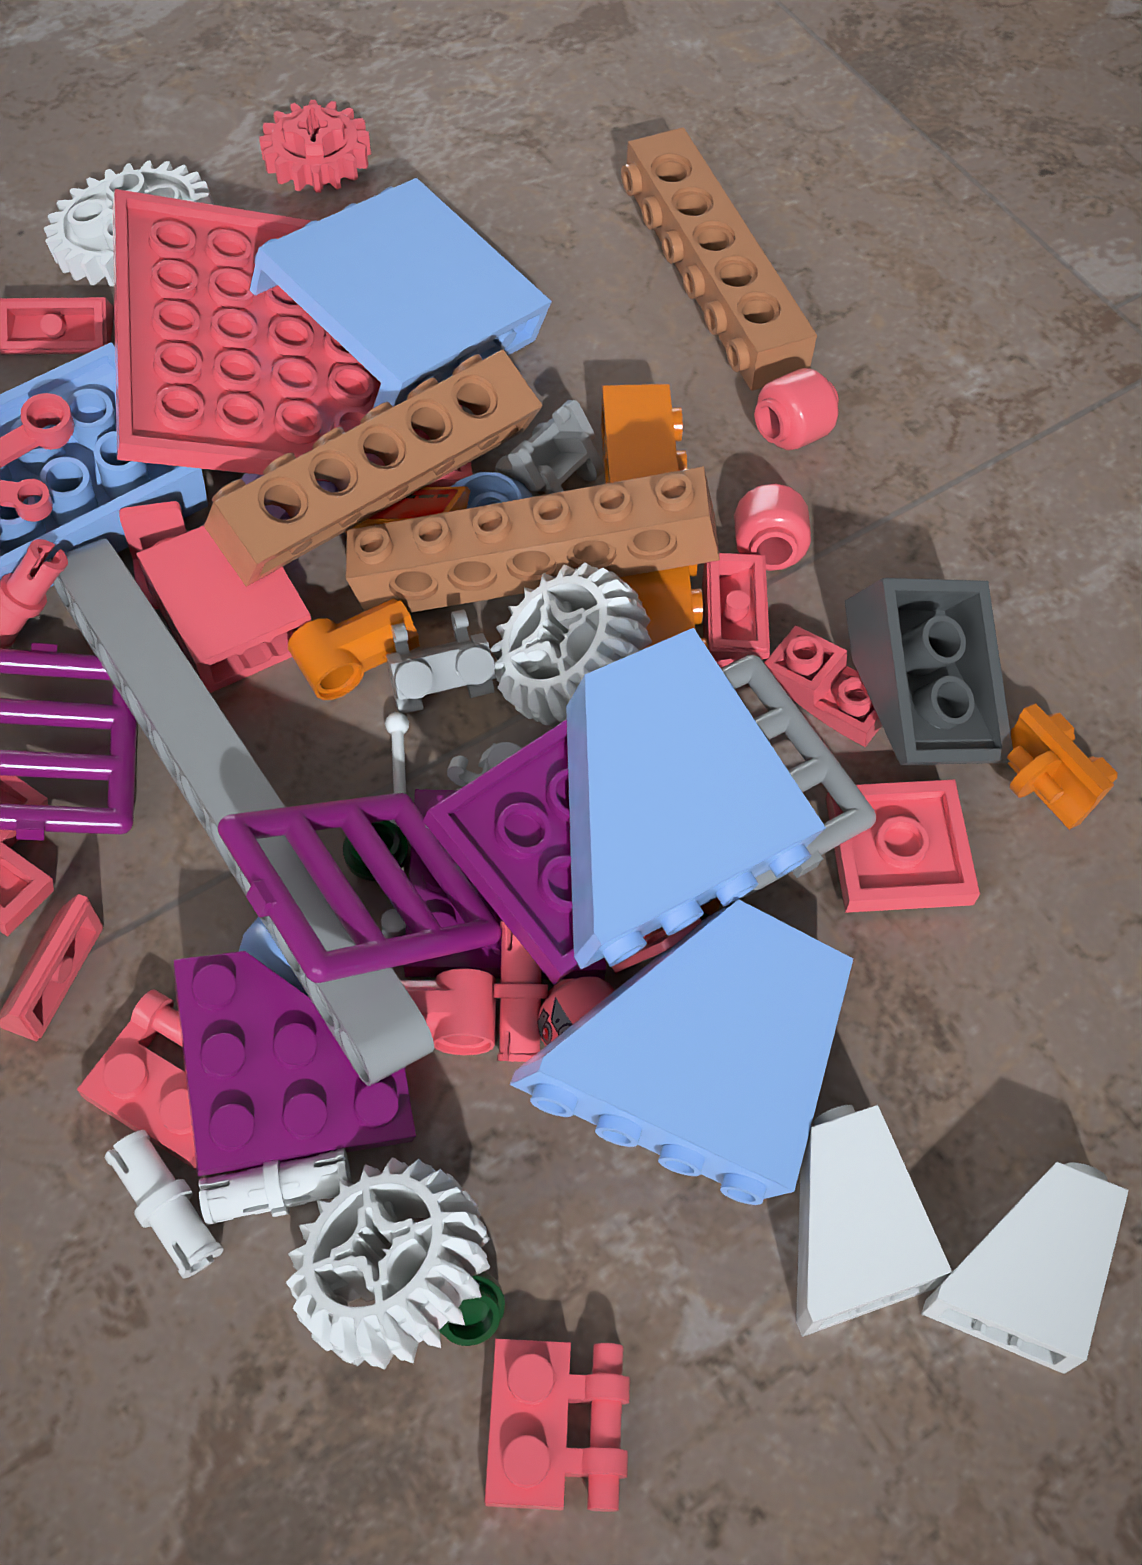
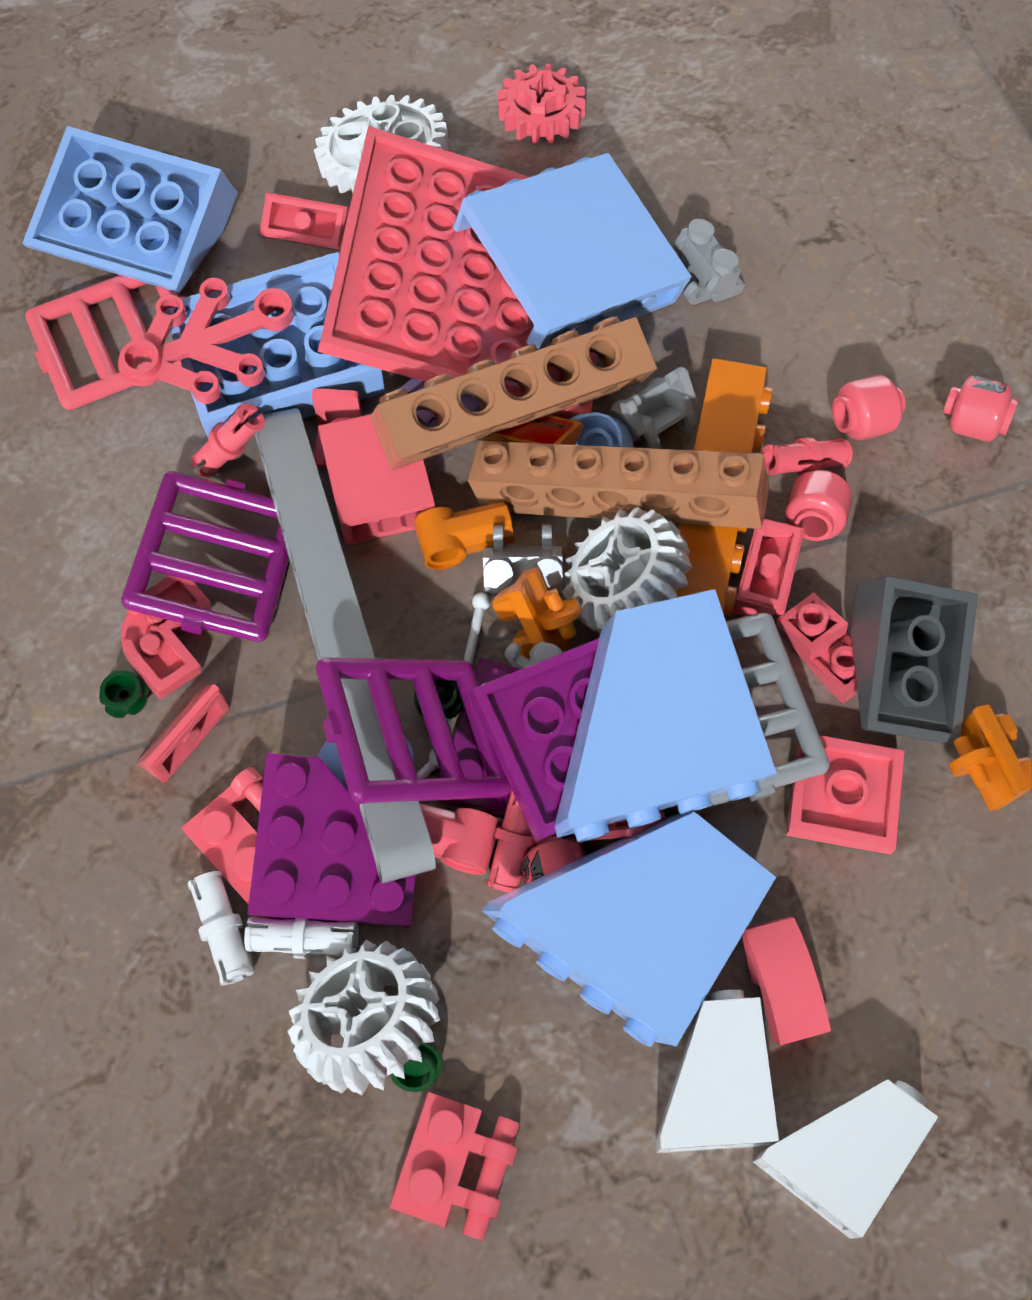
camera: 20 degrees right, 5 degrees up
(480, 713) = (539, 611): none -> orange hips
(572, 287) = (710, 265): none -> light grey piece
(718, 258) = (841, 262): nougat brick -> none
(748, 471) = (807, 456): none -> coral pin
(896, 1071) = (787, 980): none -> coral slope
(923, 386) = (980, 408): none -> coral head

